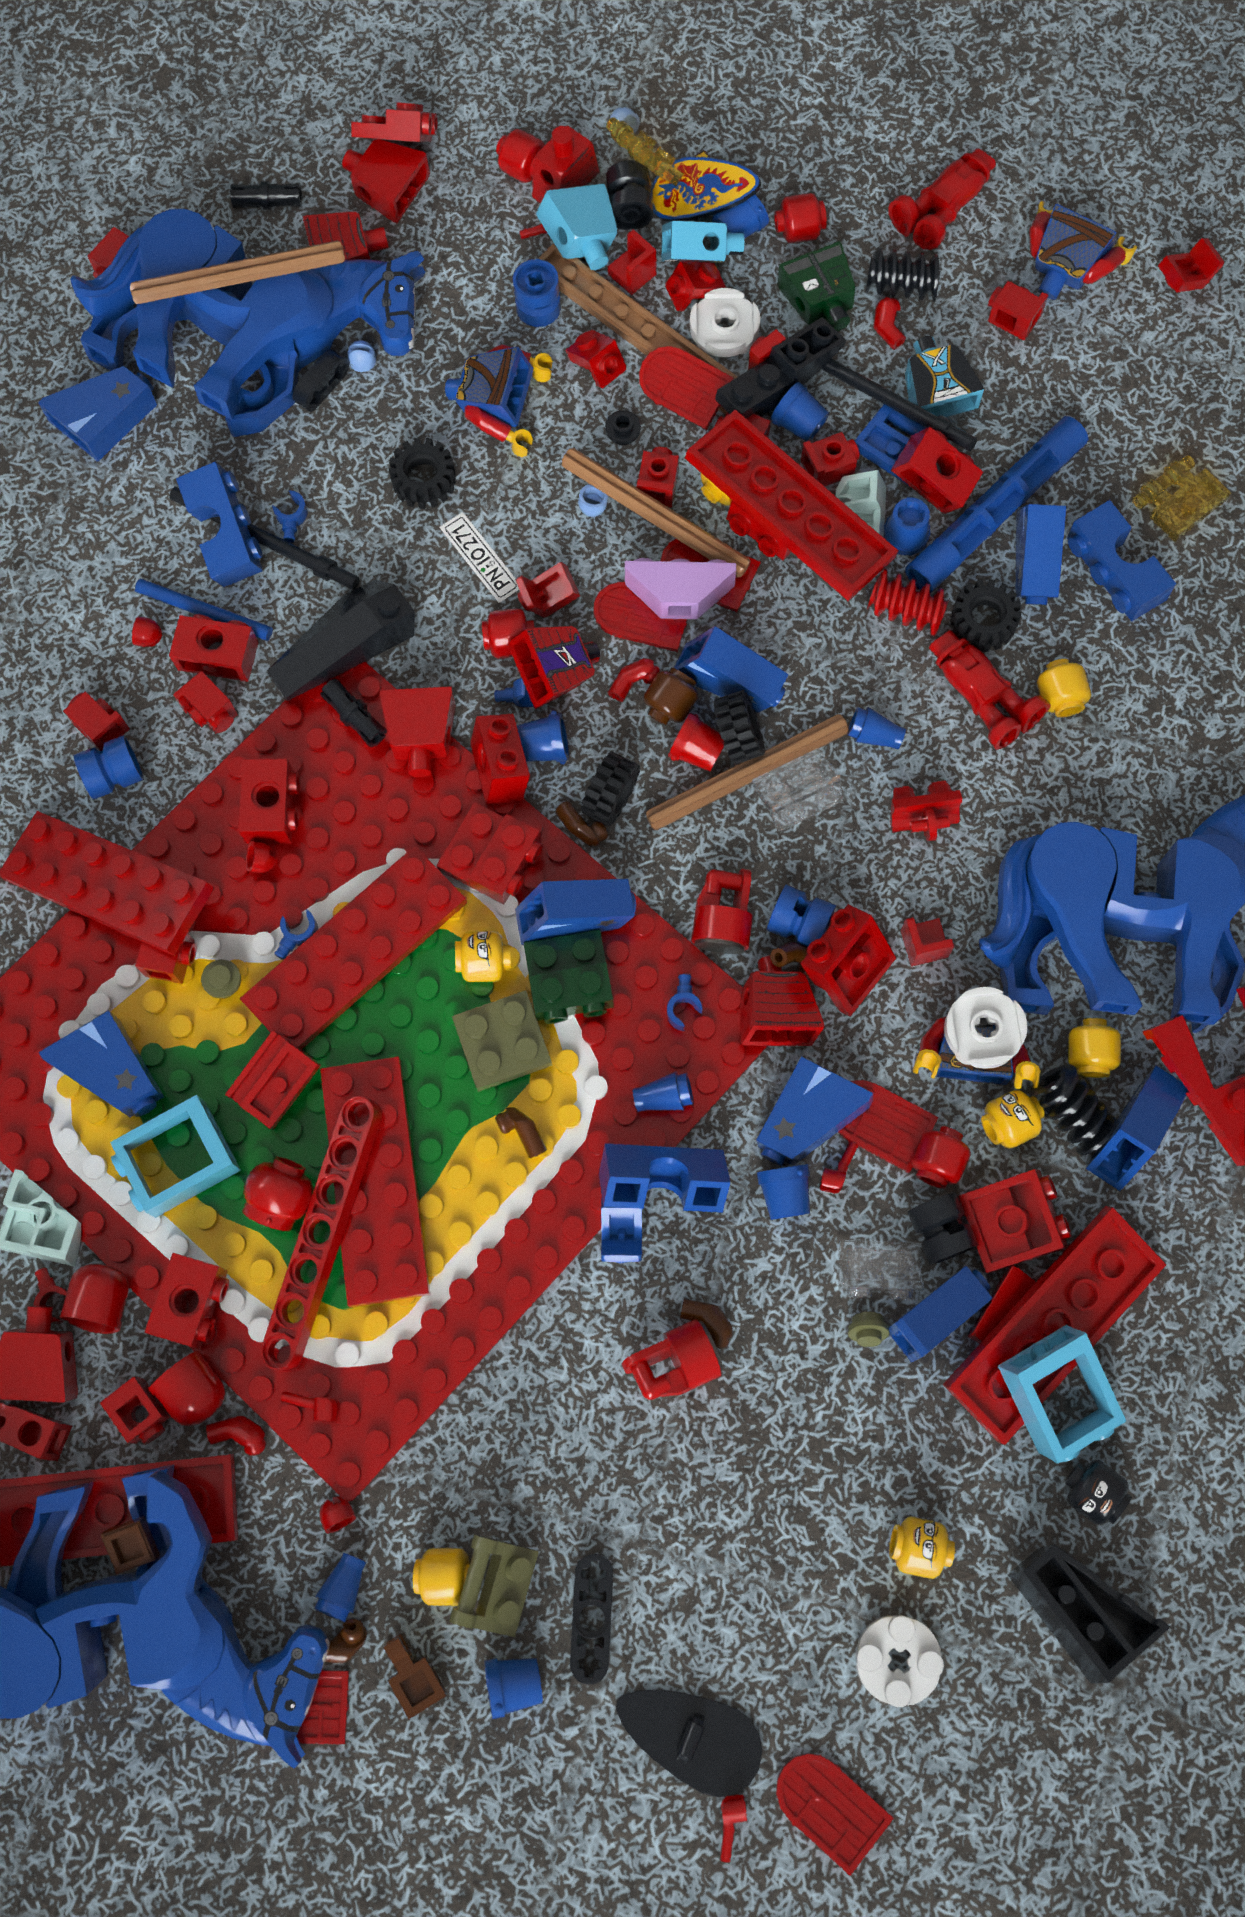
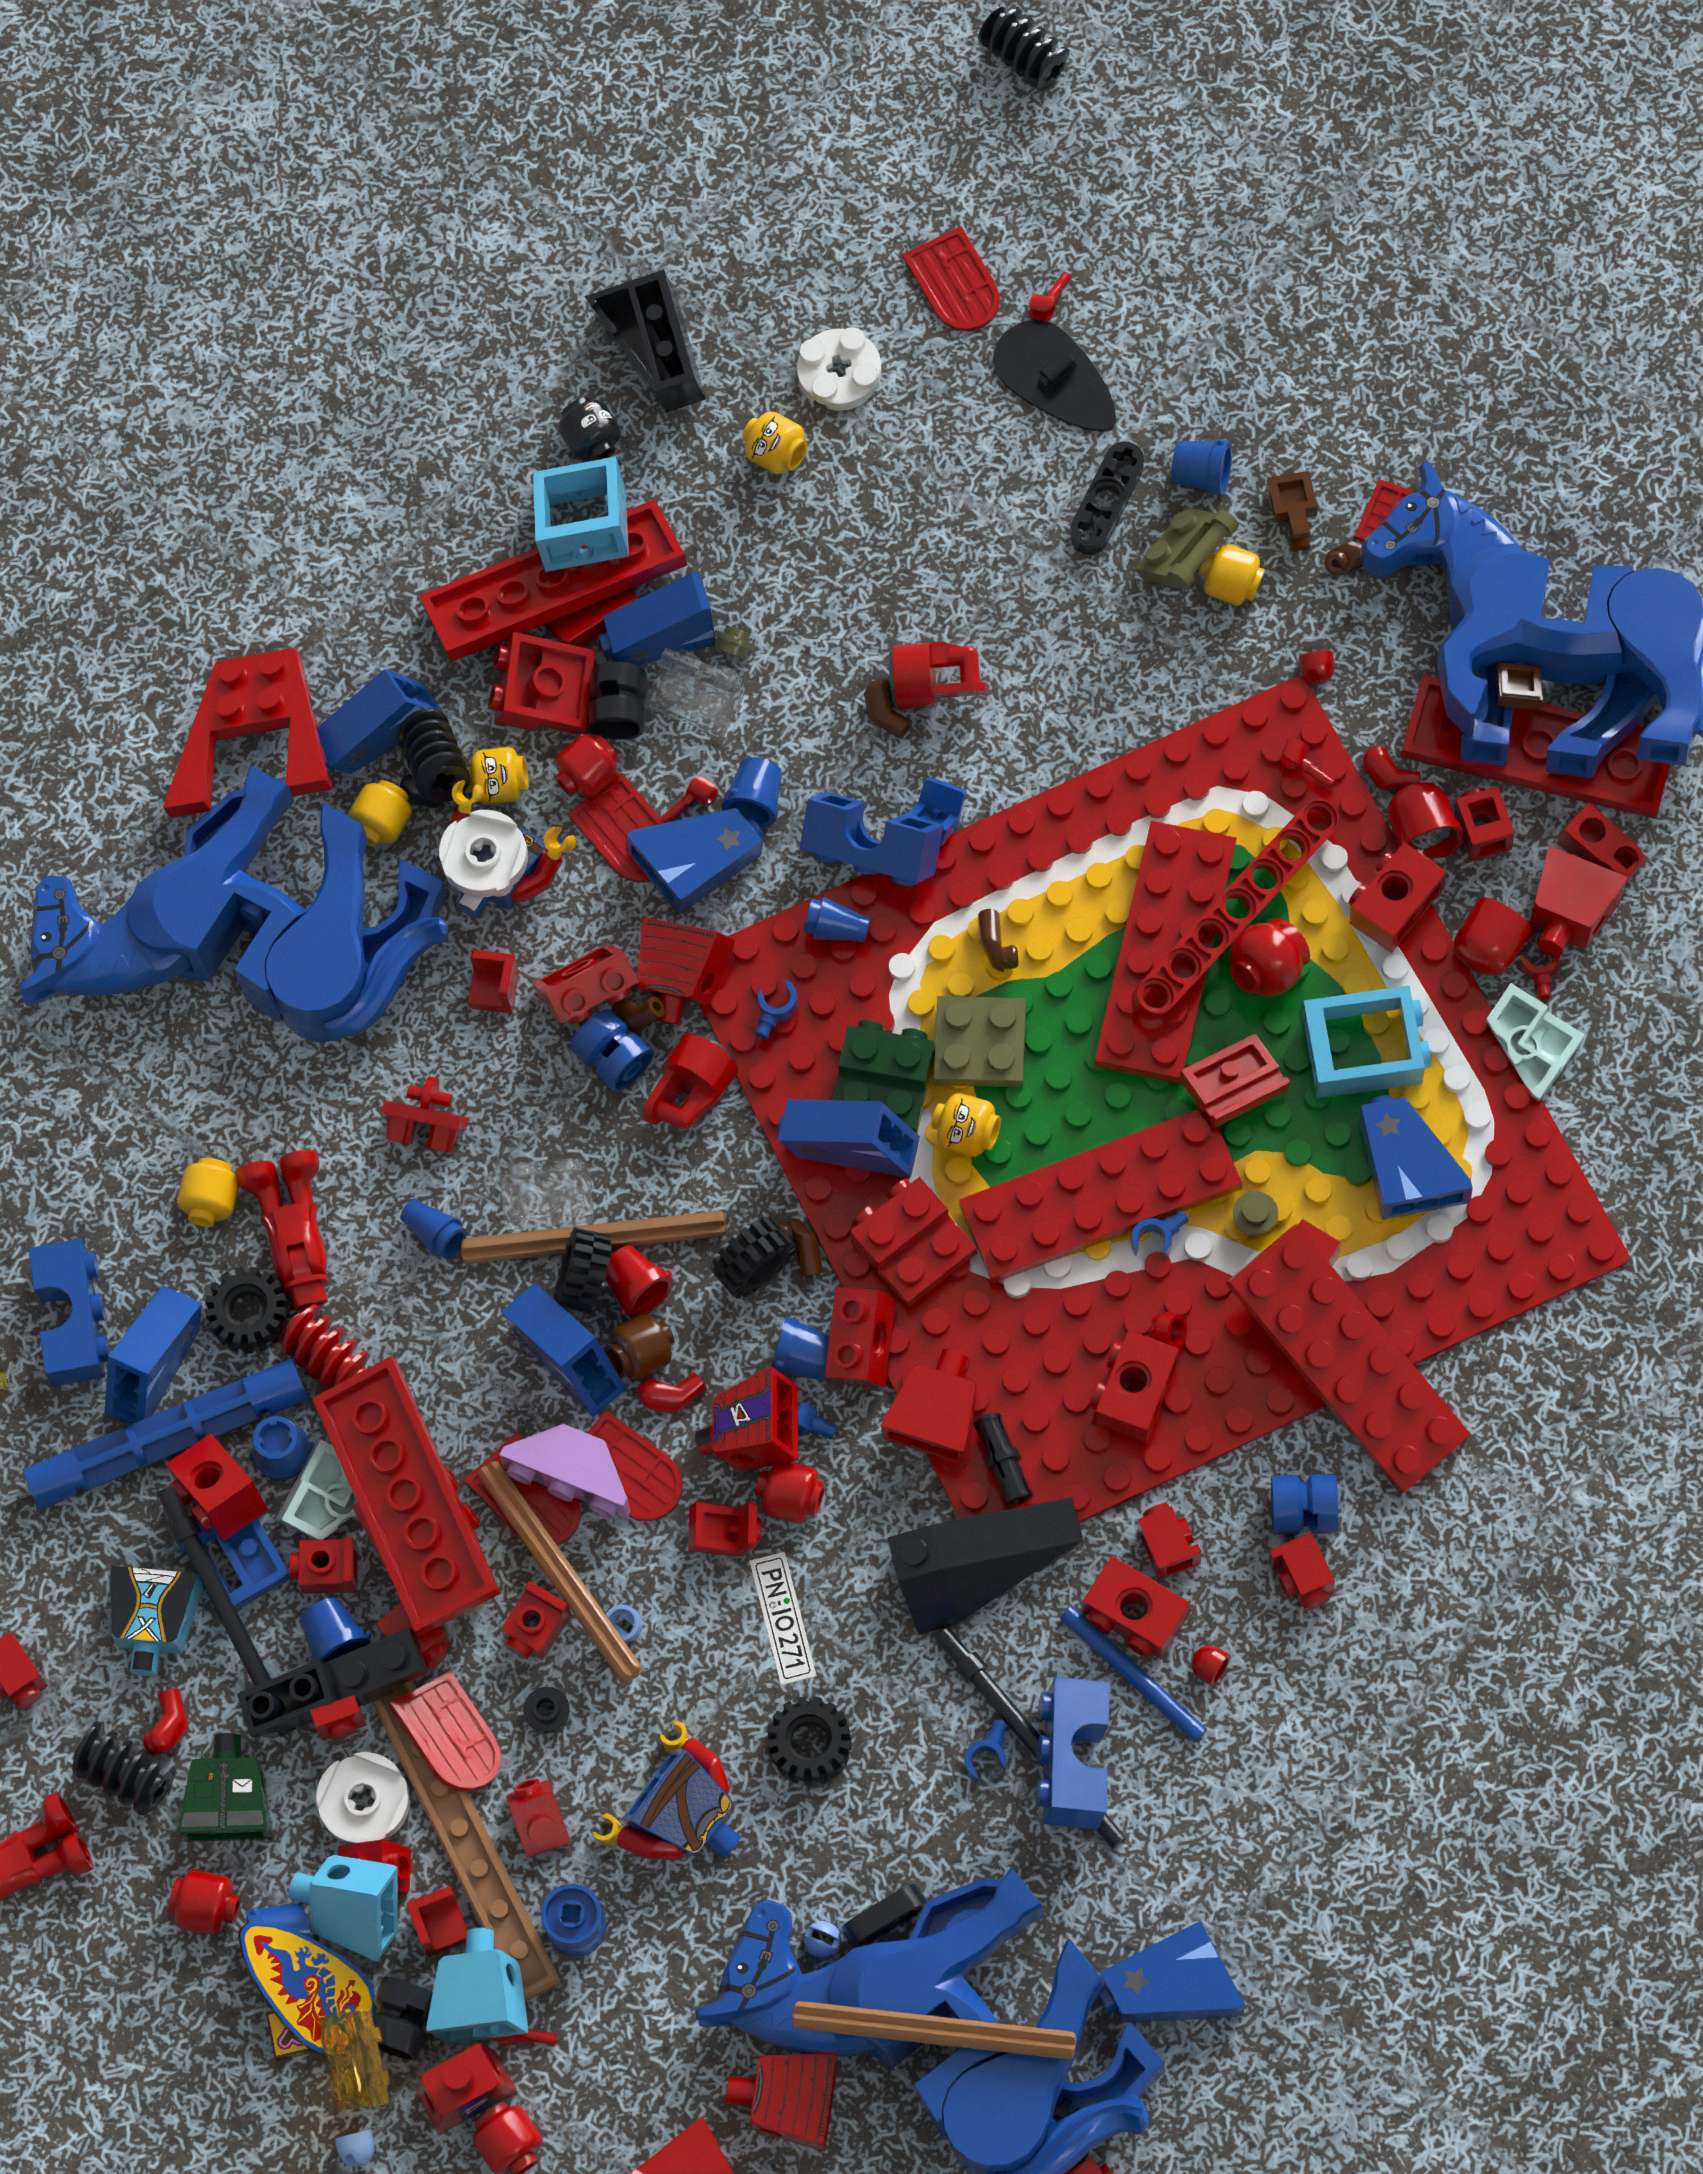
camera: 155 degrees left, 5 degrees down
(340, 1590) = (1336, 599): blue cone -> none

